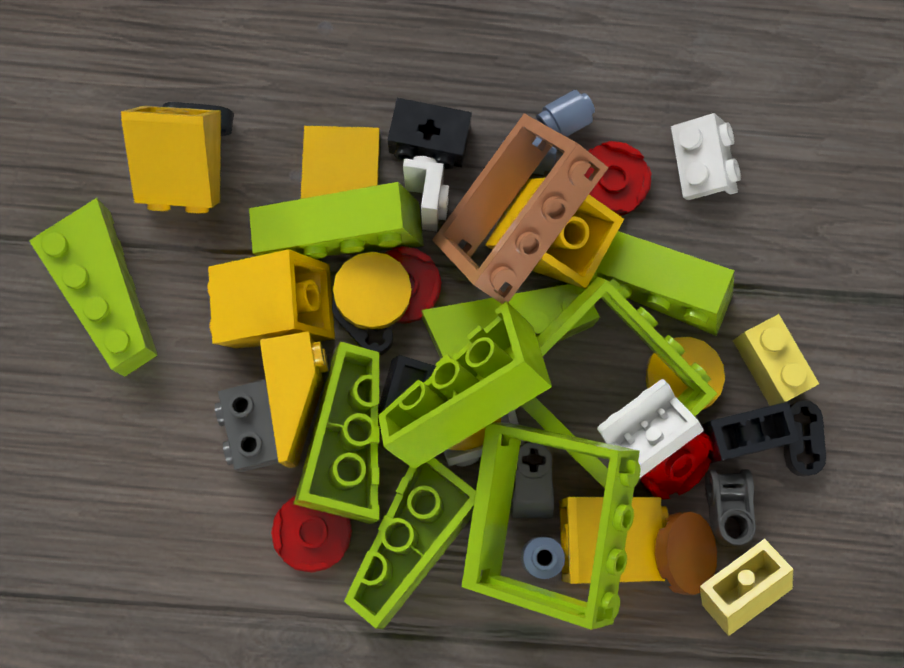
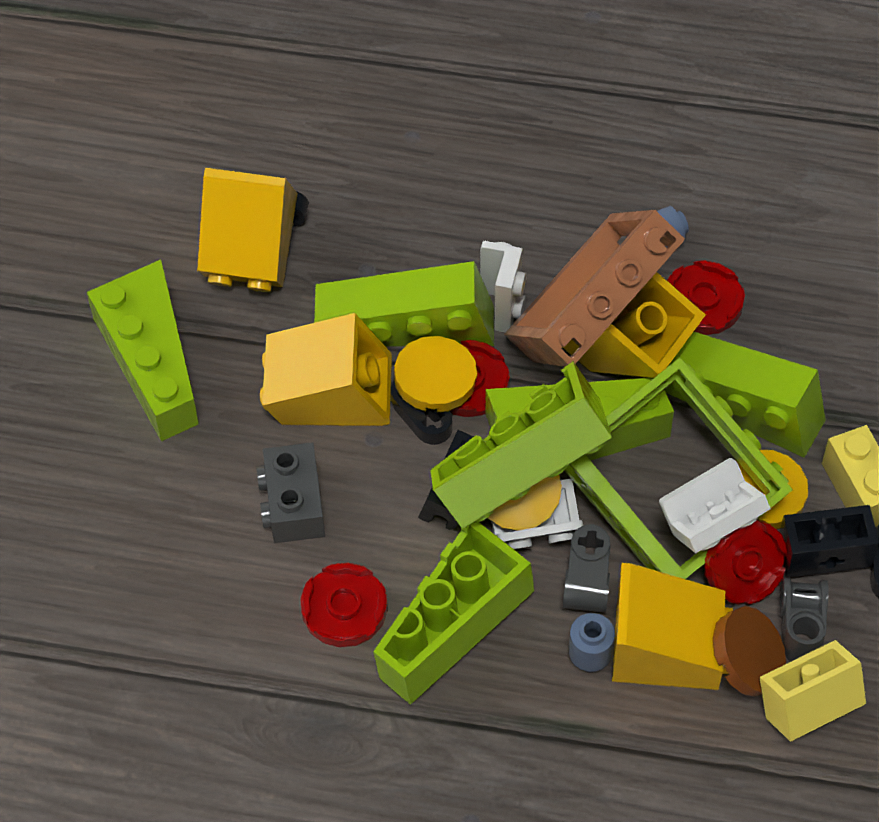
camera: 10 degrees right, 20 degrees down
(293, 384) = (345, 443): yellow slope -> none
(339, 159) = (413, 247): yellow tile -> none
(343, 451) = (388, 517): lime wedge -> none
(416, 119) = (517, 226): black brick -> none
(492, 517) = (546, 564): lime window -> none
(705, 157) = (804, 282): white bracket -> none

